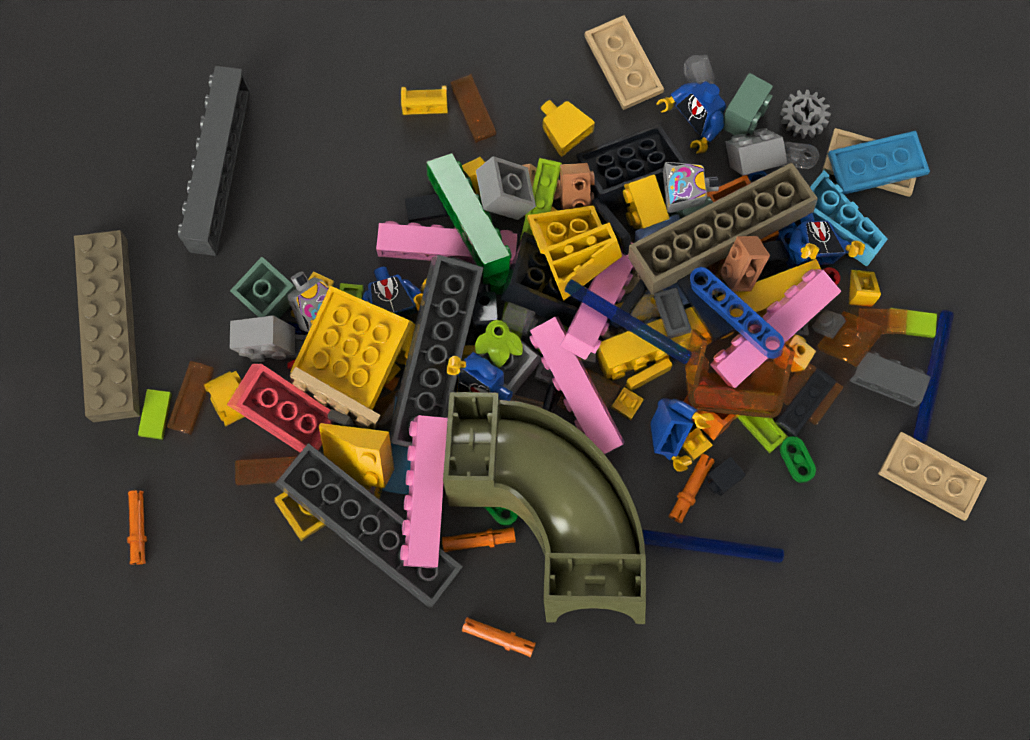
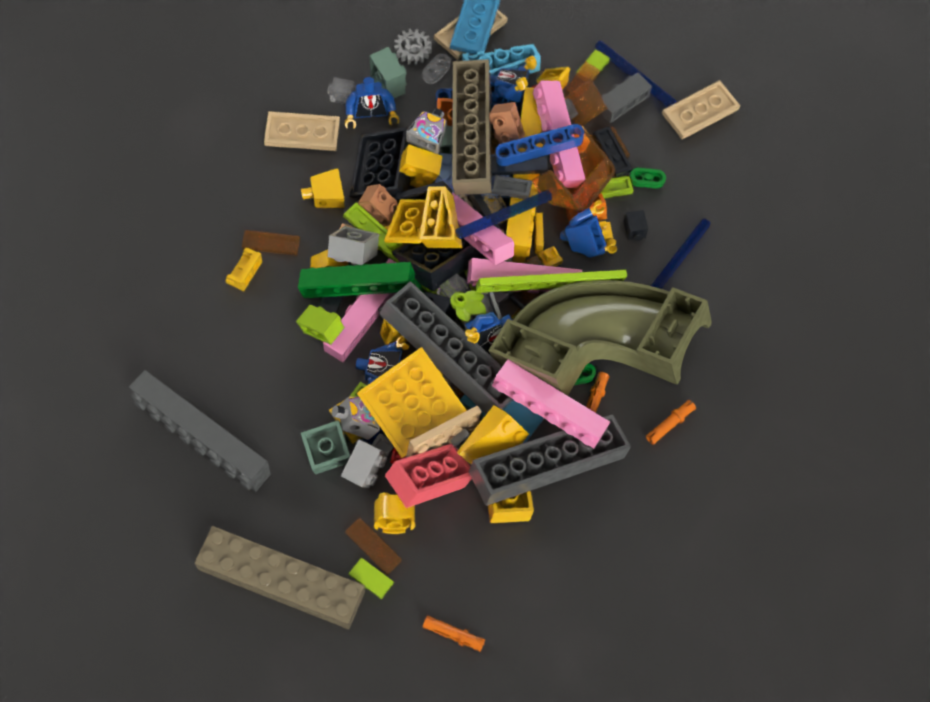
camera: 65 degrees left, 10 degrees down
(261, 470) = (463, 516): clear orange tile -> none
(396, 208) = (320, 324): none -> lime brick
(581, 416) = (544, 281): none -> lime tile
(687, 496) = (637, 256): orange pin -> none
(756, 151) = (424, 85): light grey brick -> none

